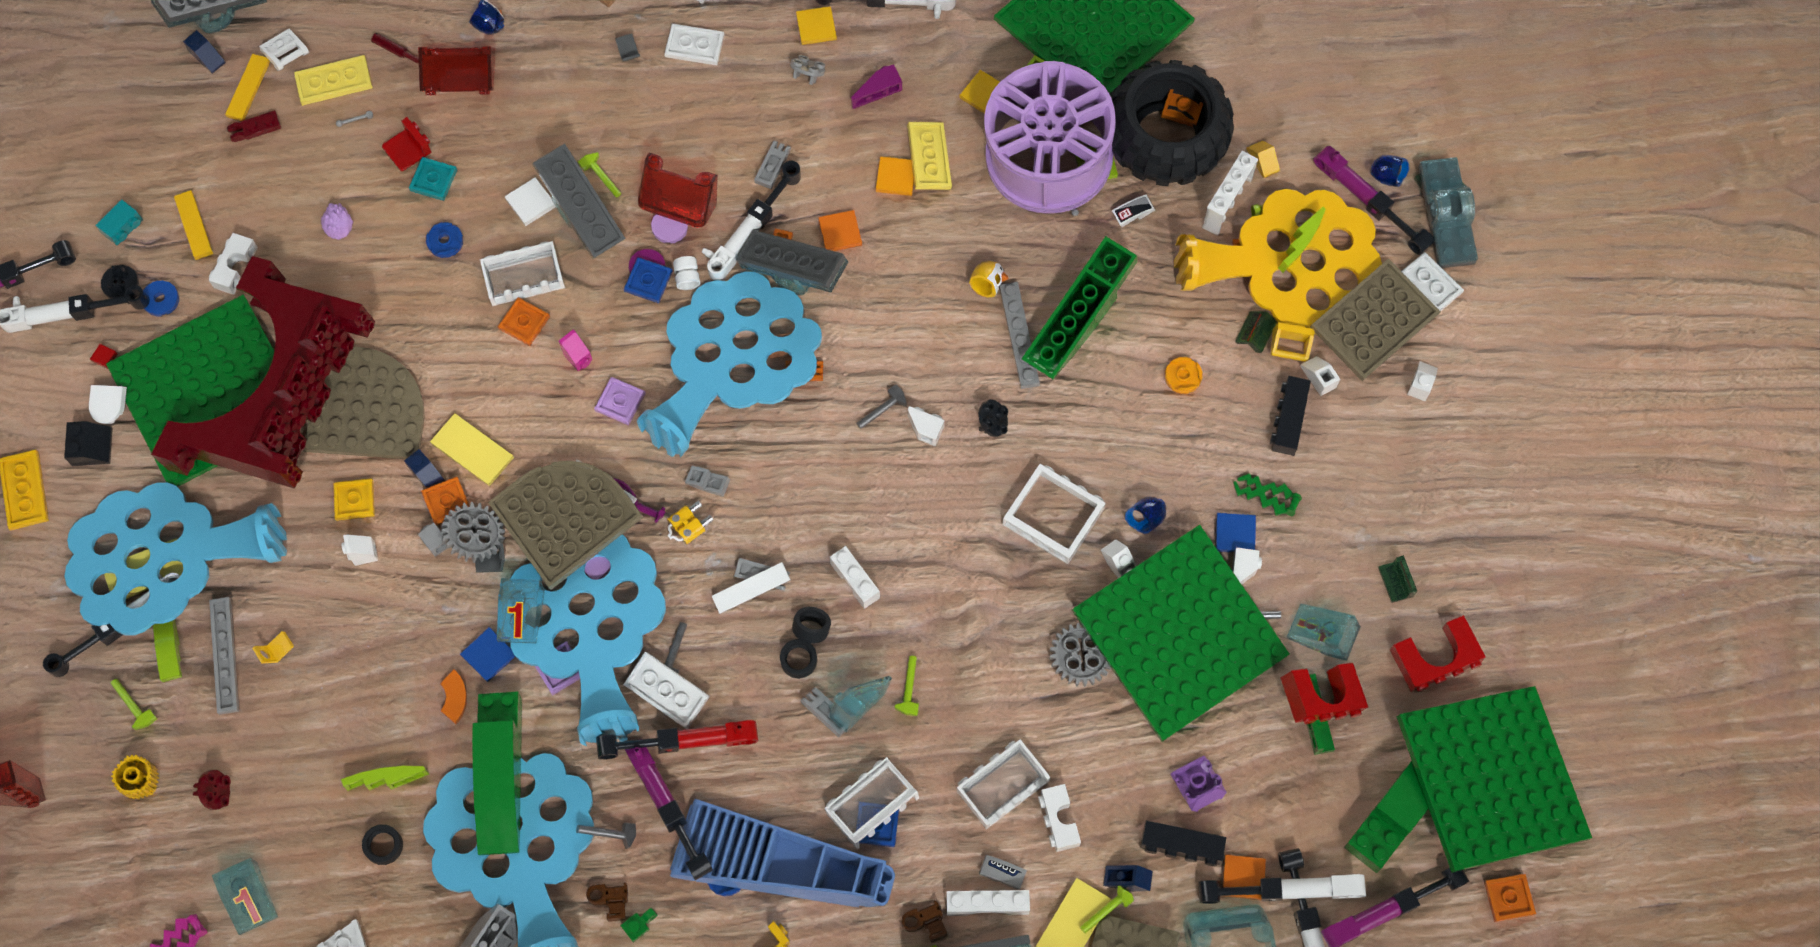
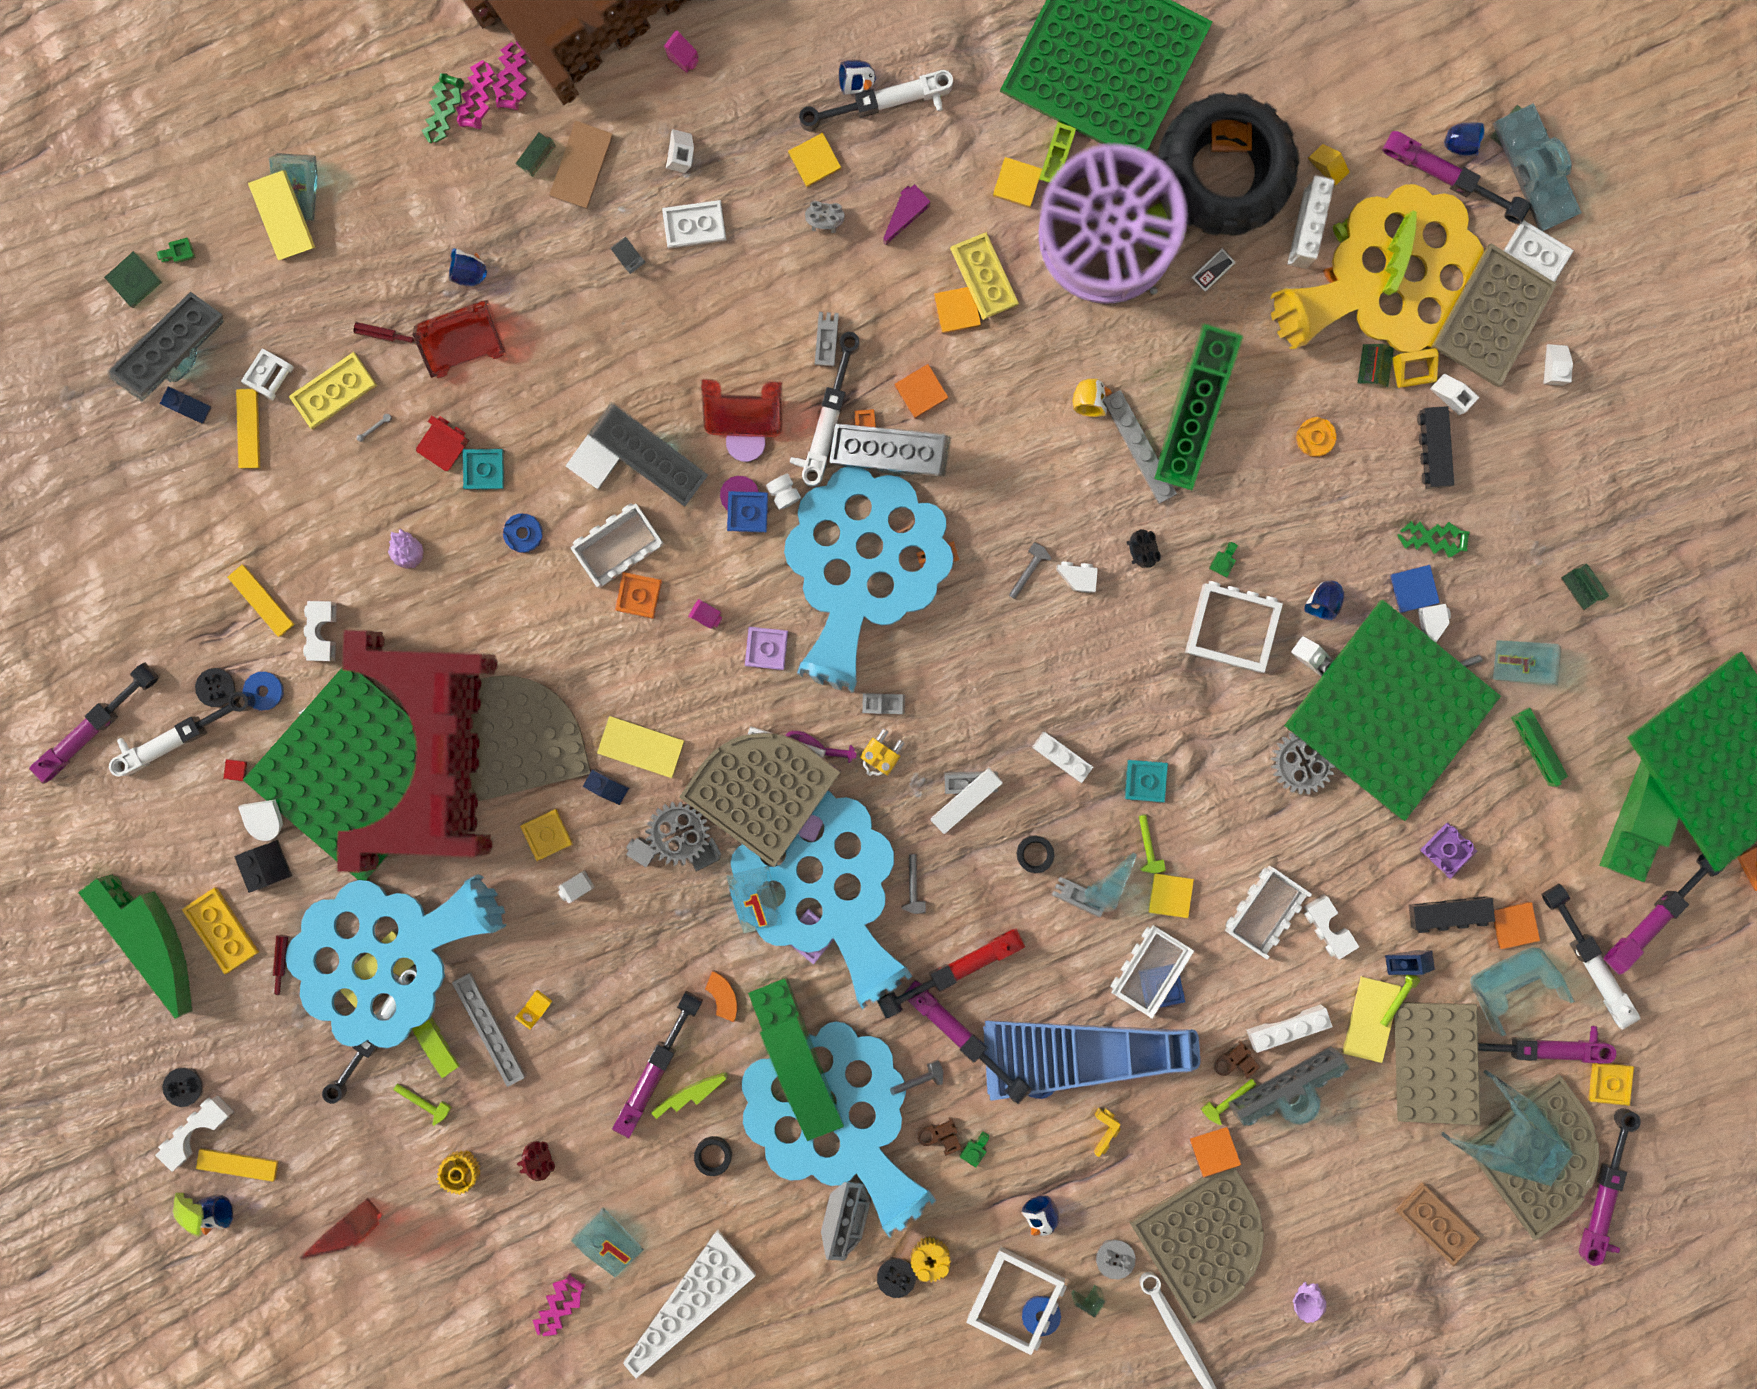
camera: 20 degrees left, 20 degrees up
(62, 533) = (279, 961): none -> dark red axle
(119, 222) = (185, 625): teal brick -> none
(254, 126) = (276, 470): dark red hinge -> none
(370, 735) = (654, 1070): none -> piece
(443, 498) = (636, 808): orange tile -> none
(488, 655) = (738, 947): blue tile -> none
(589, 161) = (636, 397): lime piece -> none
(666, 690) = (921, 925): white tile -> none
(811, 635) = (1042, 806): black tyre -> none
(915, 740) = (1171, 895): none -> yellow tile
(927, 626) = (1146, 780): none -> teal tile
(1002, 872) = (1292, 994): light grey slope -> none
(1064, 455) = (1223, 562): none -> green plate
(1278, 889) = (1552, 931): piece -> none
(1309, 707) = (1569, 728): red arch -> none
(1420, 674) = (1668, 643): red arch -> none

